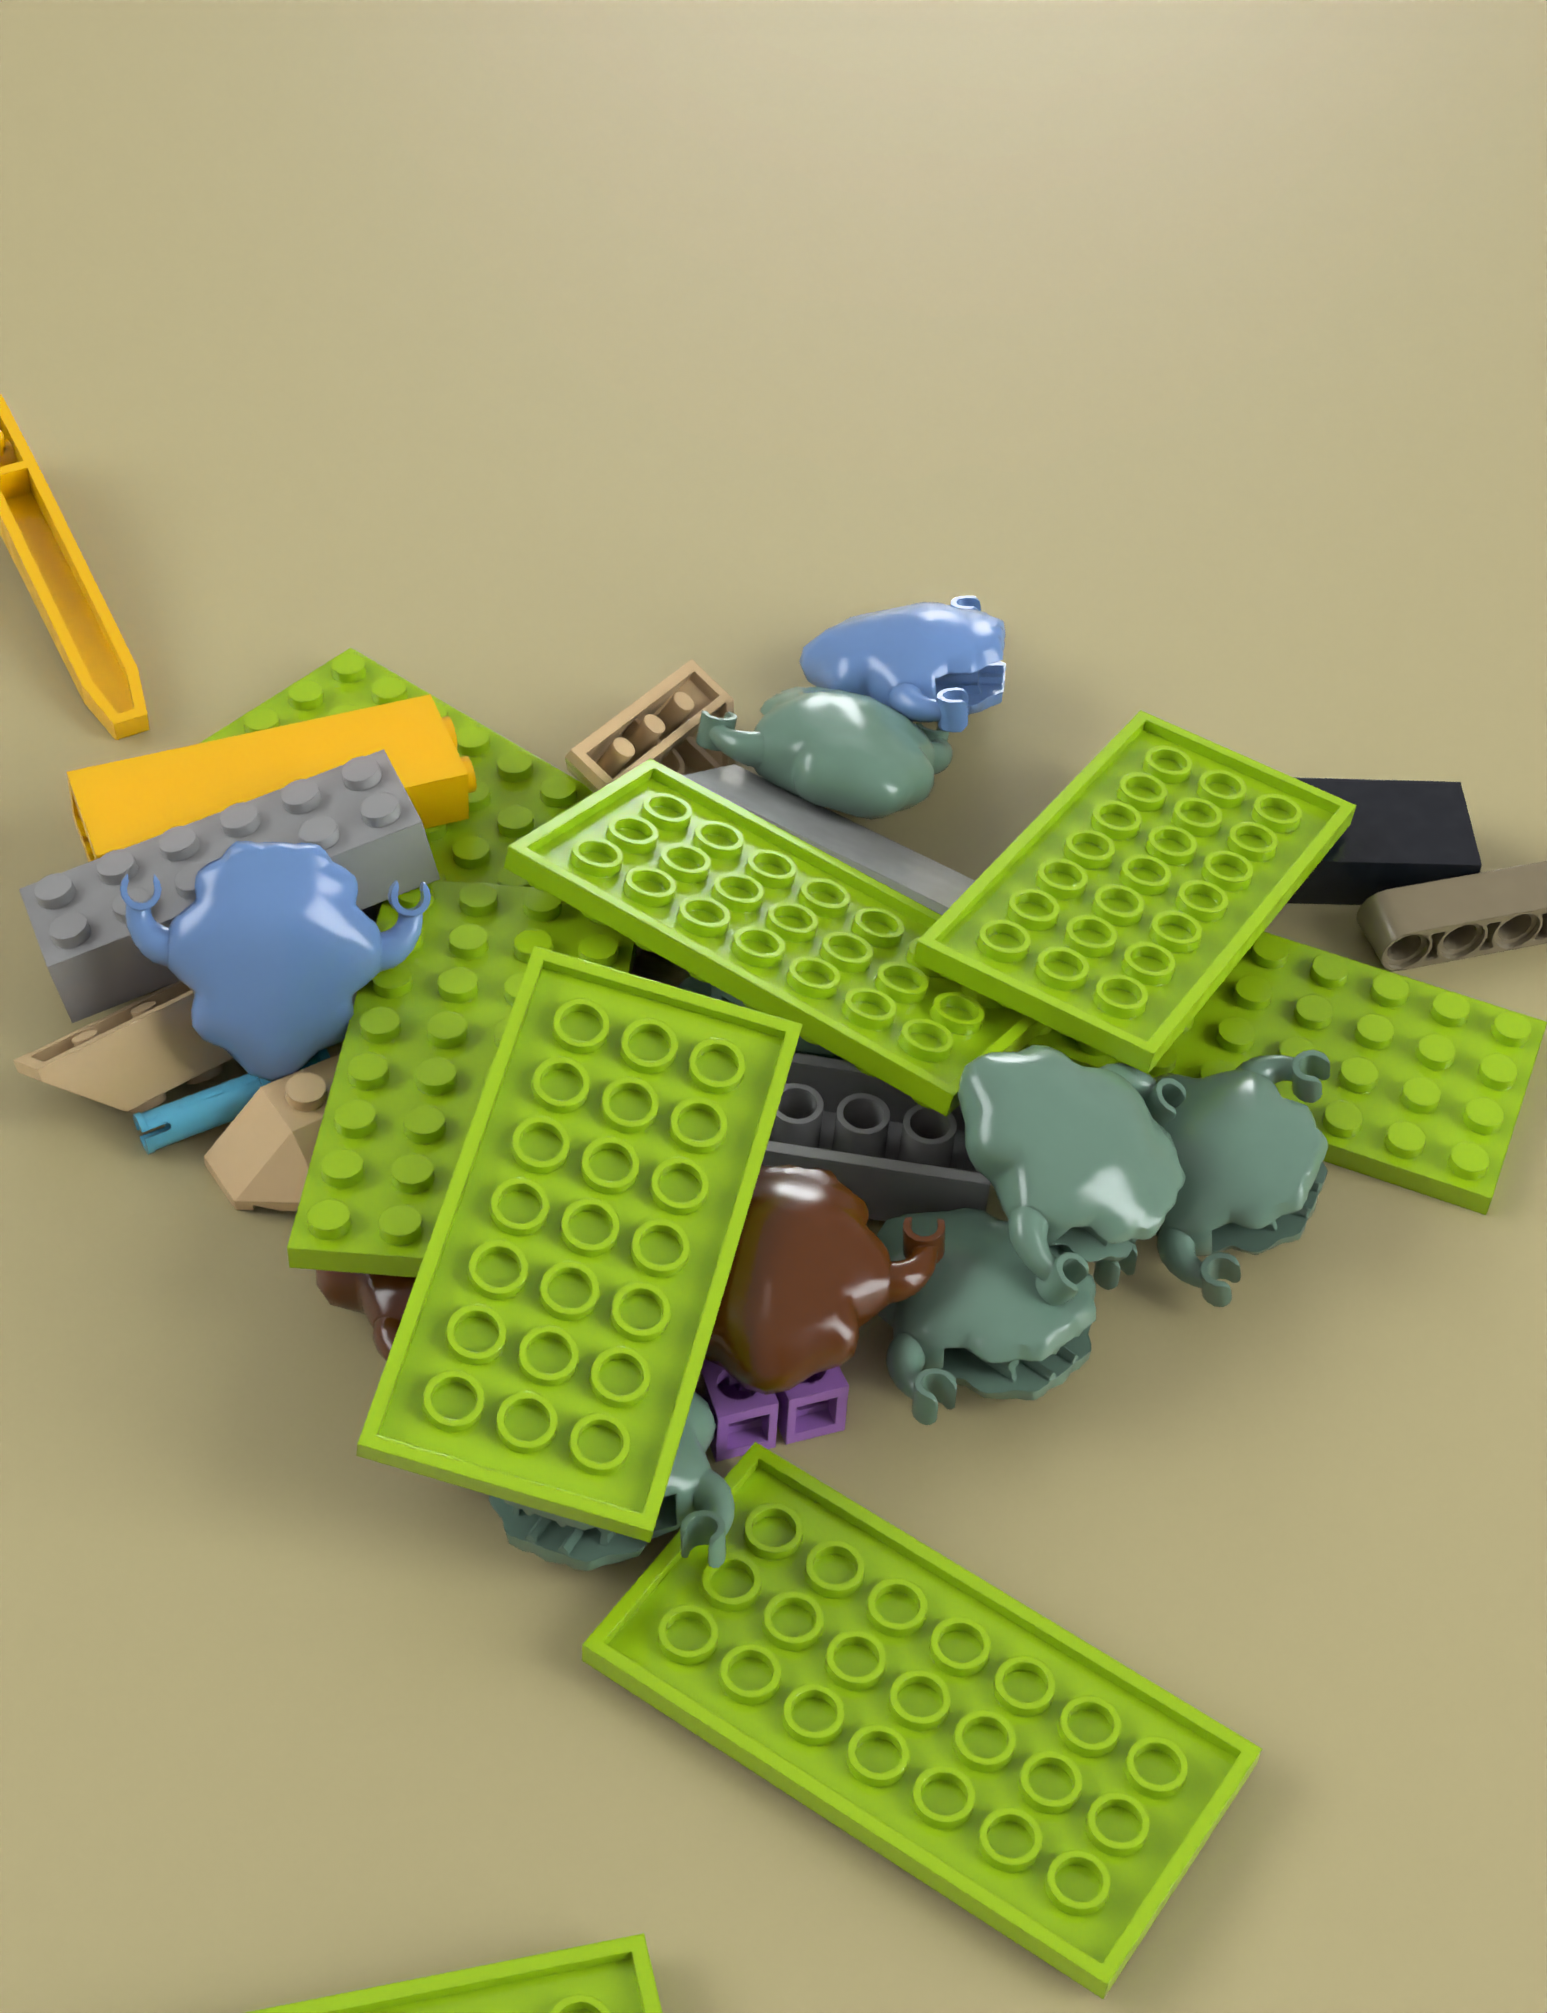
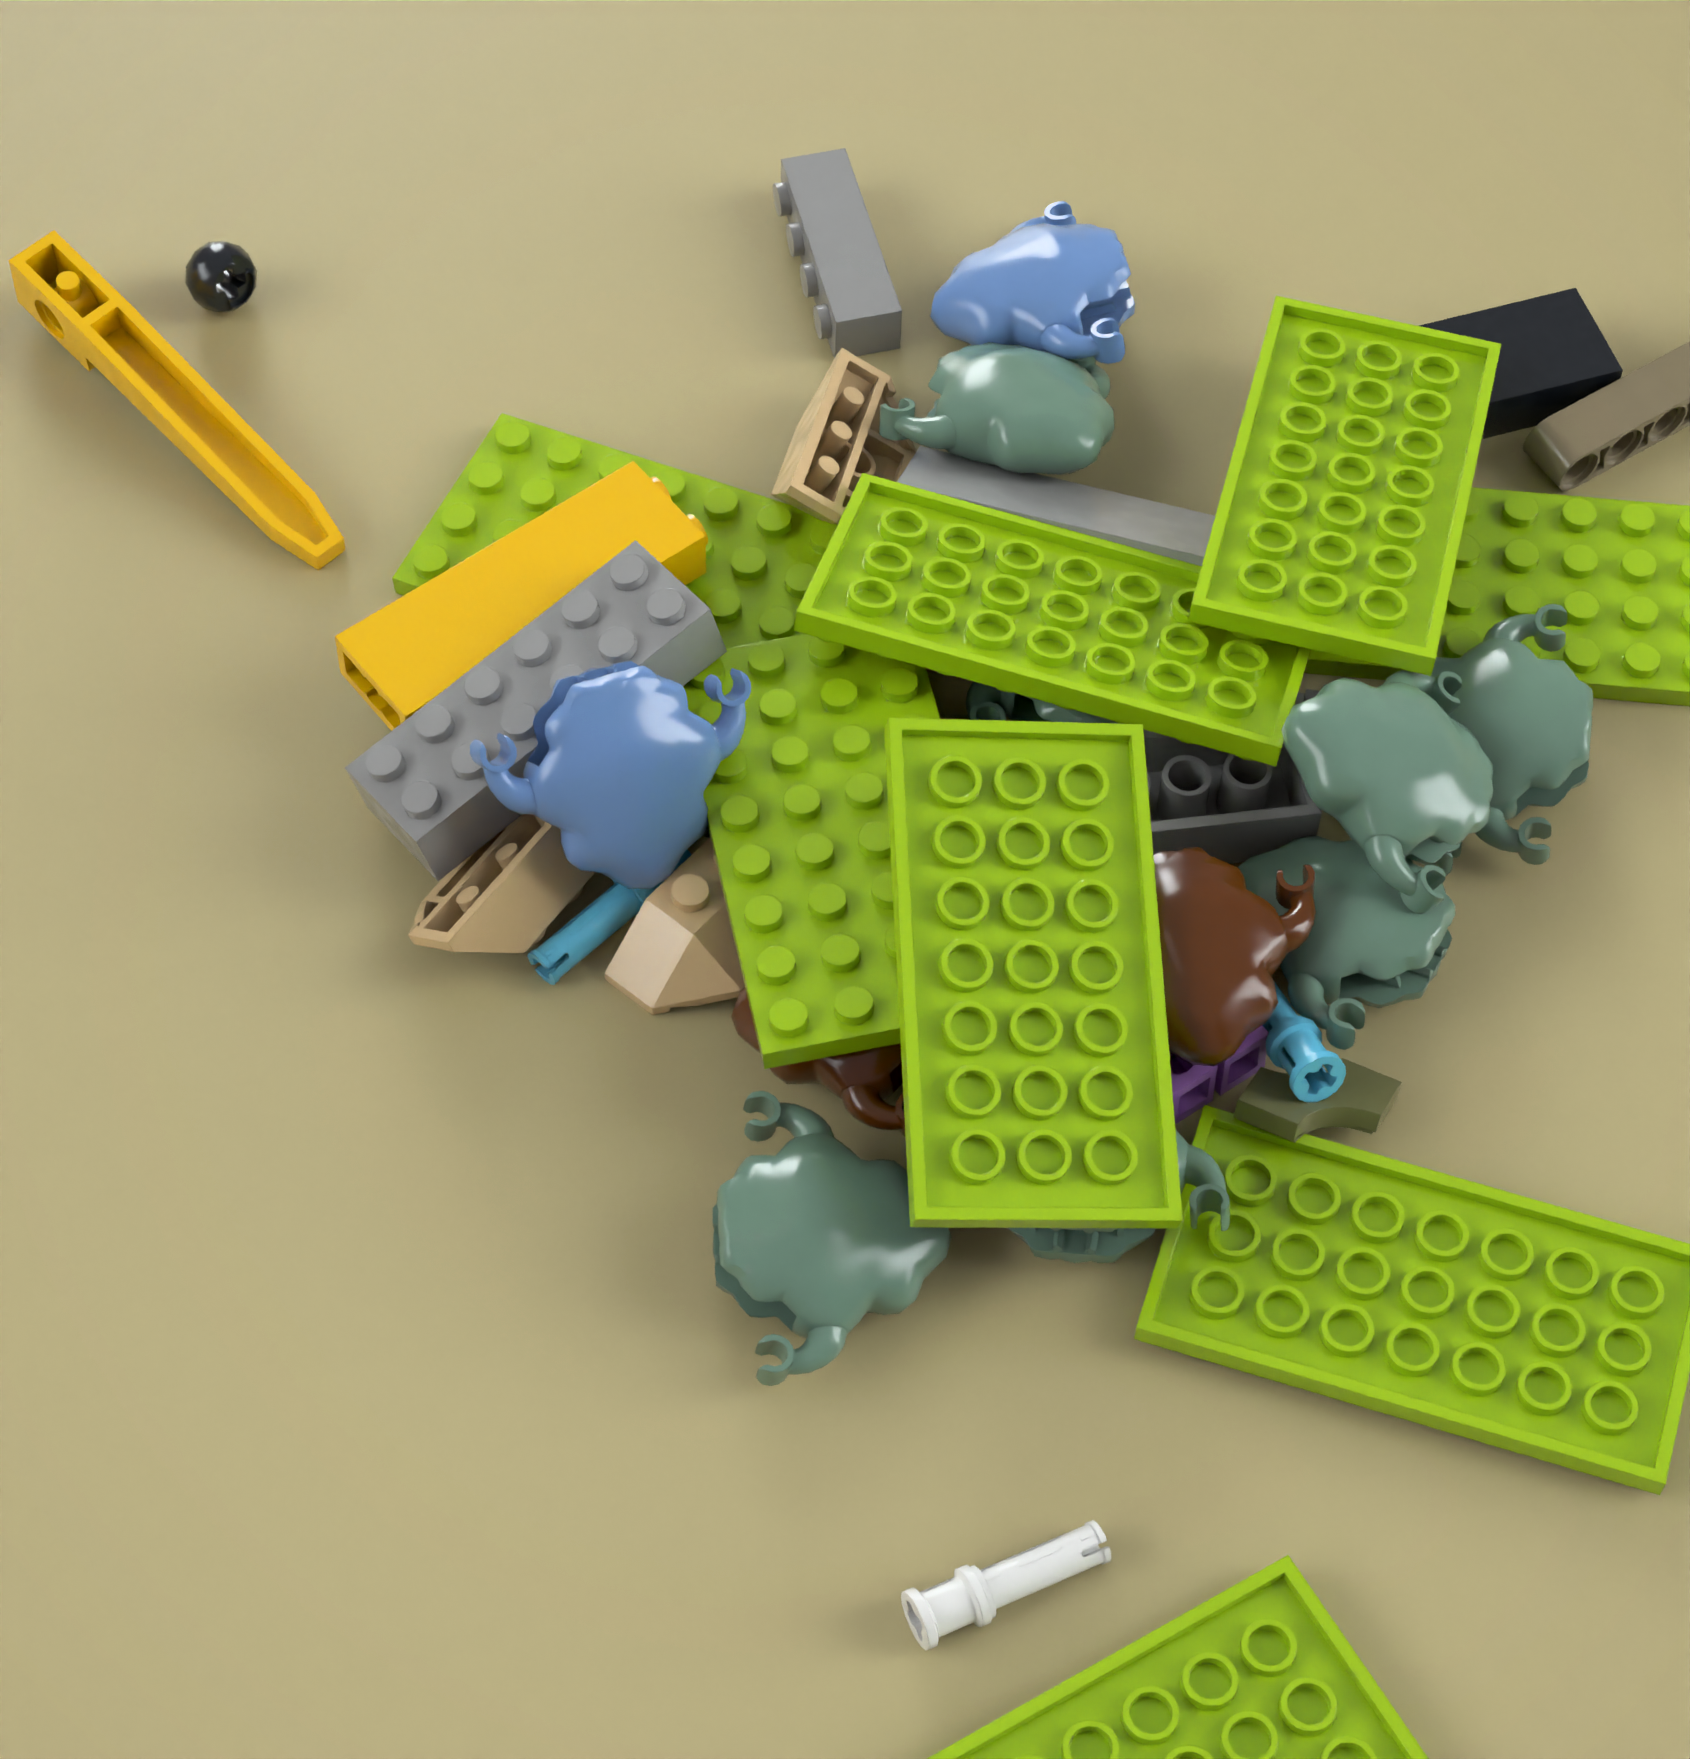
camera: 15 degrees left, 10 degrees up
(161, 487) = (221, 276): none -> black piece
(272, 1459) = (816, 1238): none -> sand green piece
(282, 1873) = (977, 1593): none -> white pin
(736, 591) = (838, 253): none -> light grey brick
(856, 1468) = (1357, 1104): none -> olive tile
(873, 1404) = (1297, 1048): none -> medium azure pin

